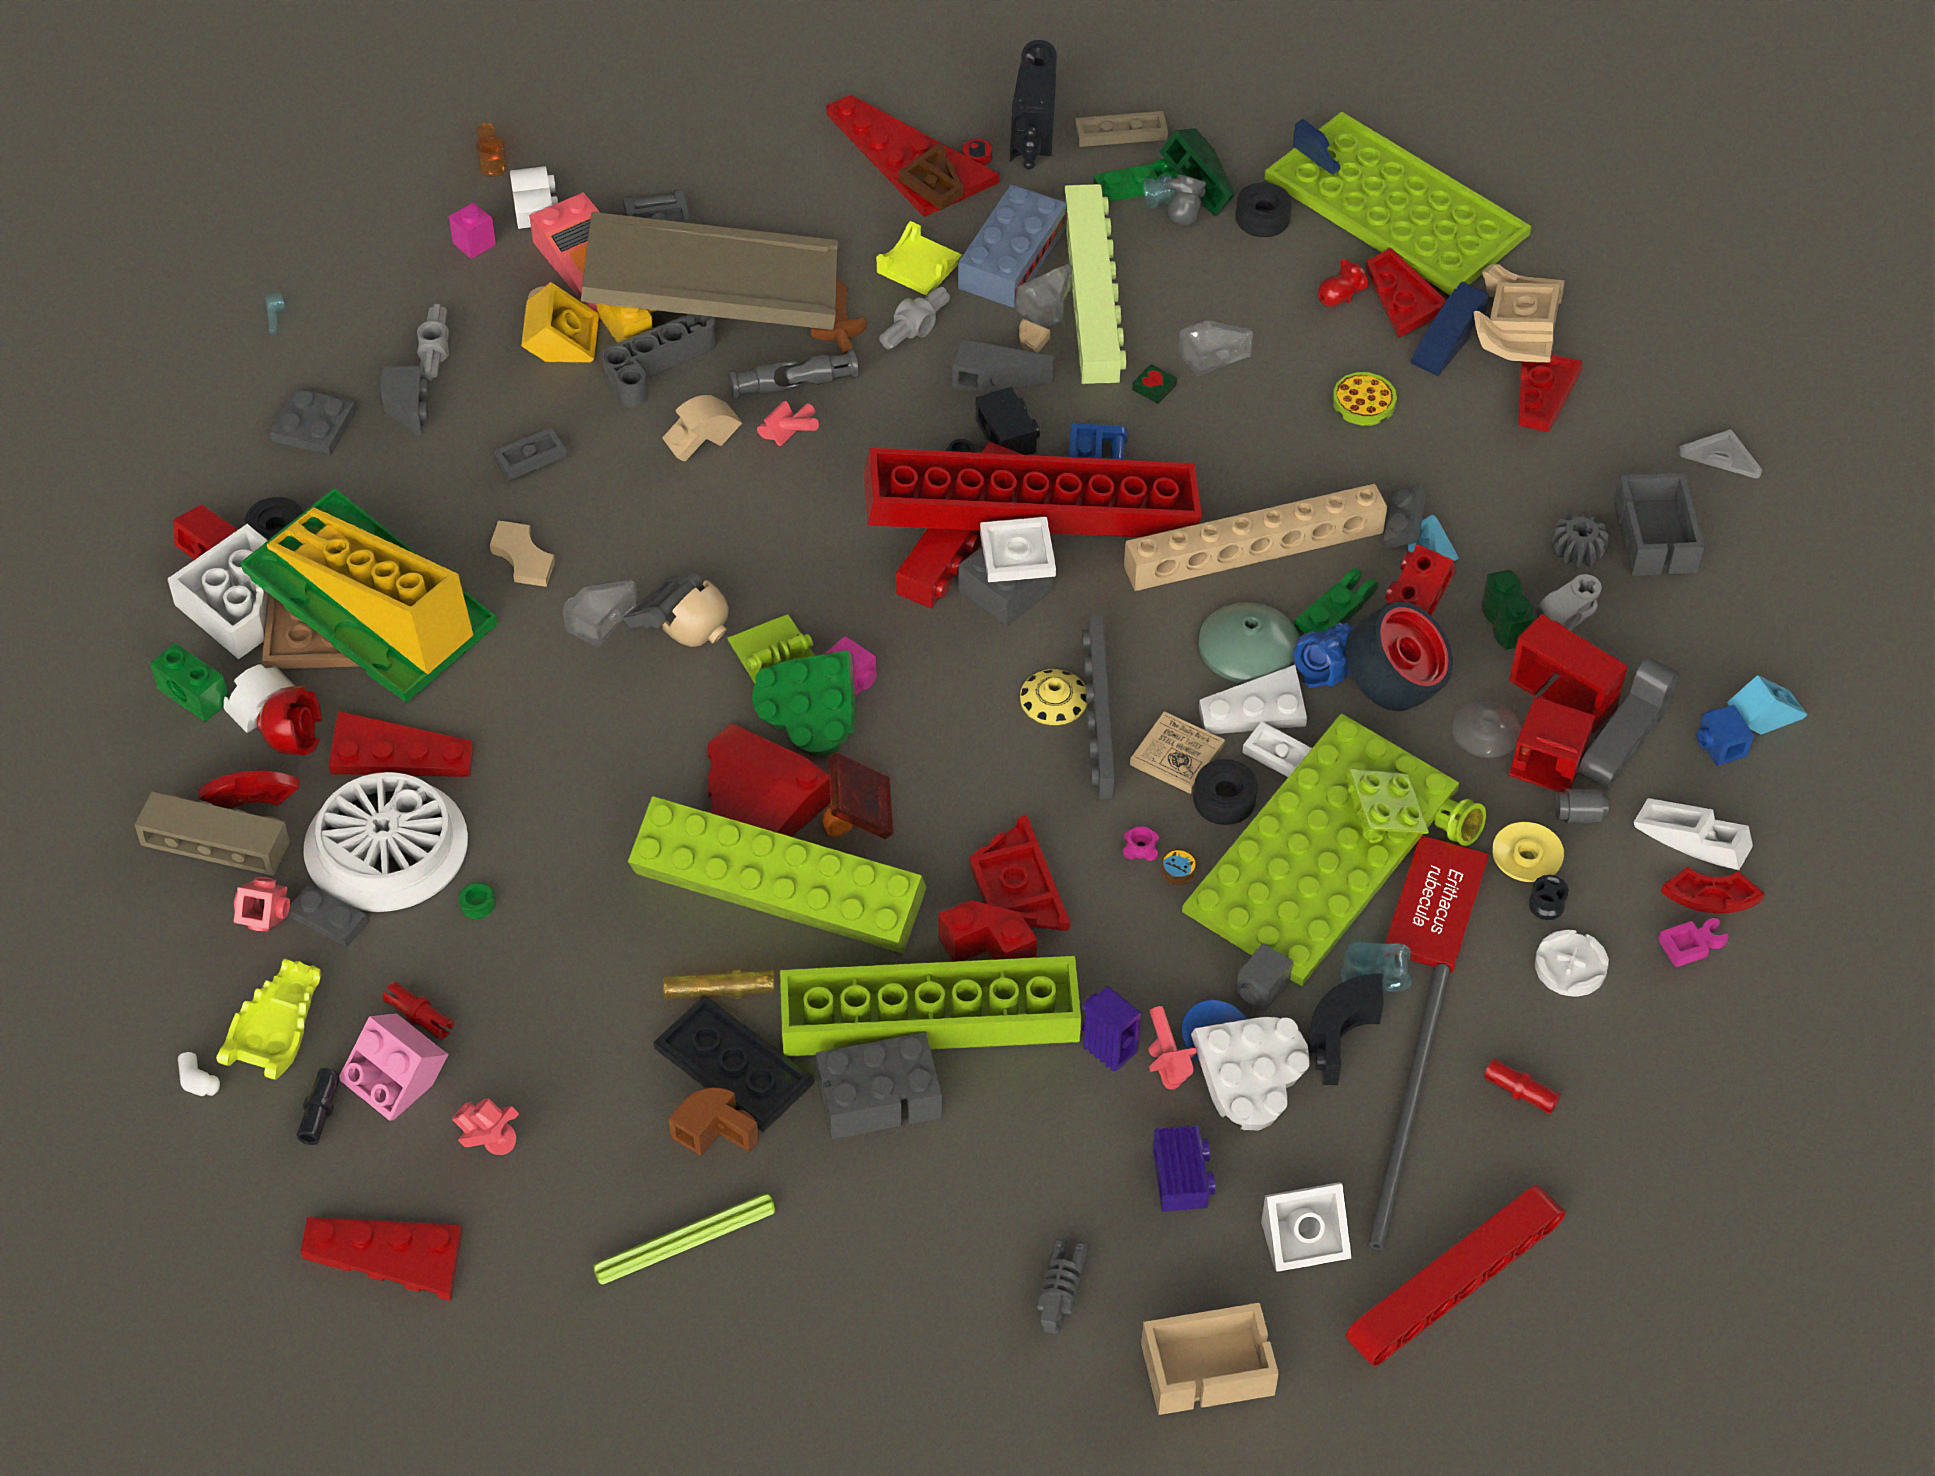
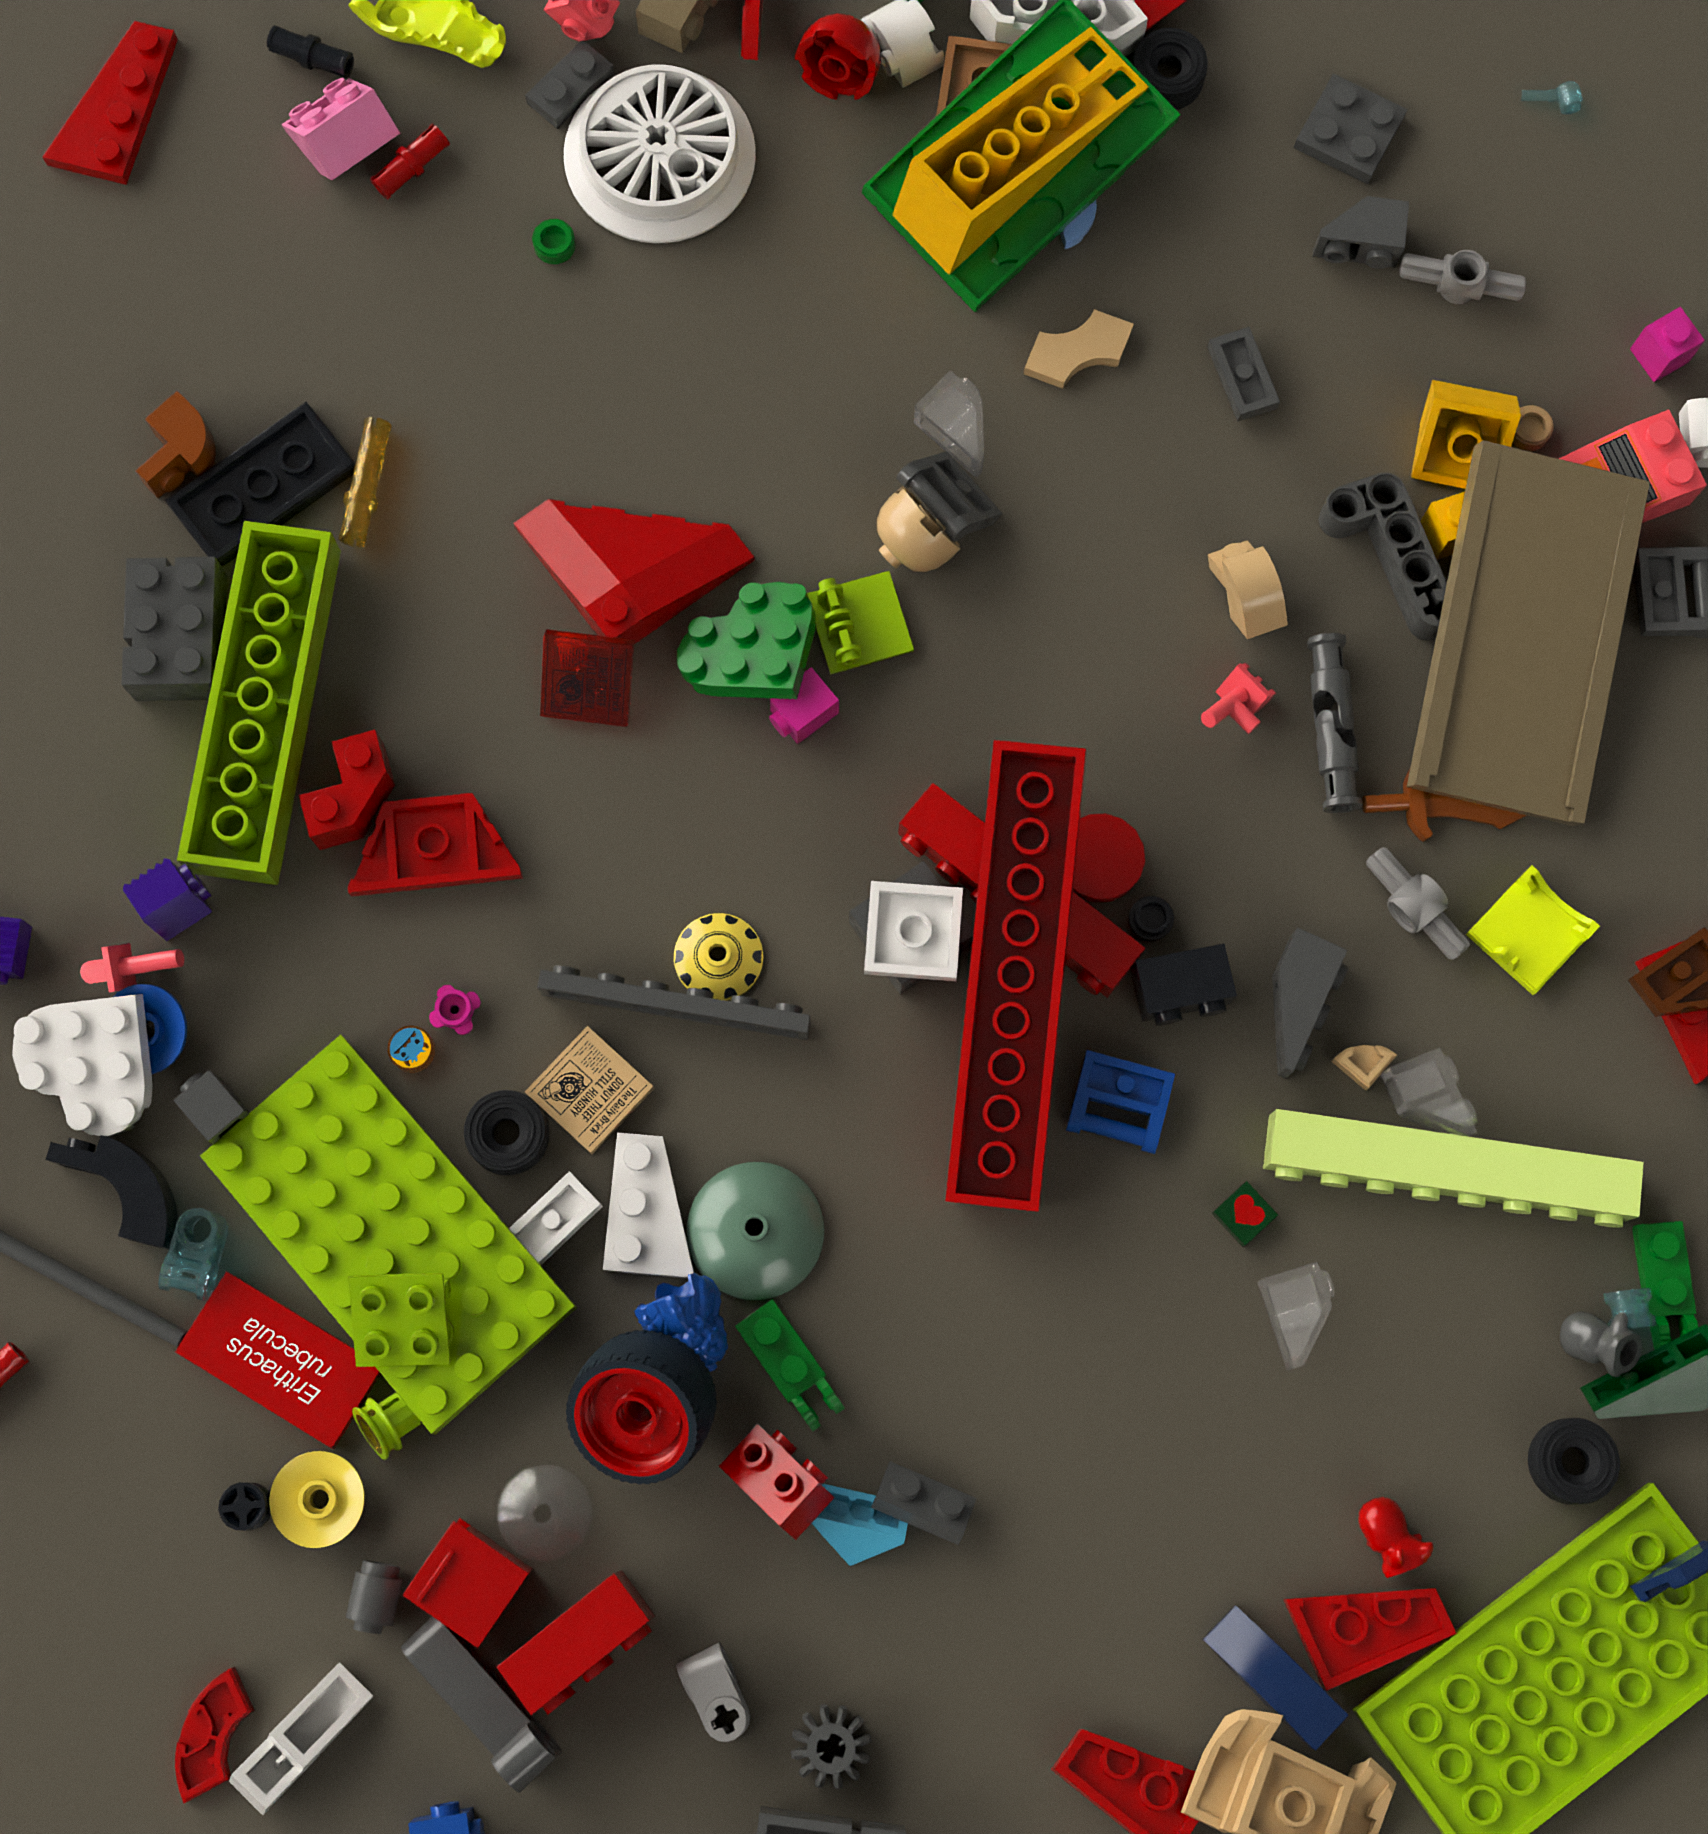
camera: 100 degrees right, 25 degrees up
(378, 746) = (797, 164): red wing -> none
(486, 1126) = (226, 207): coral hips -> none
(683, 1238) = (47, 400): lime axle -> none
(778, 874) = (486, 561): lime brick -> none
(1011, 245) = (1541, 1066): sand blue brick -> none
(1254, 537) = (920, 1280): tan brick -> none
(1364, 398) = (1167, 1511): tile -> none
(1506, 607) = (706, 1597): dark green brick -> none
(1571, 963) = (149, 1508): white tile -> none
(1689, 944) = (131, 1668): dark pink plate -> none

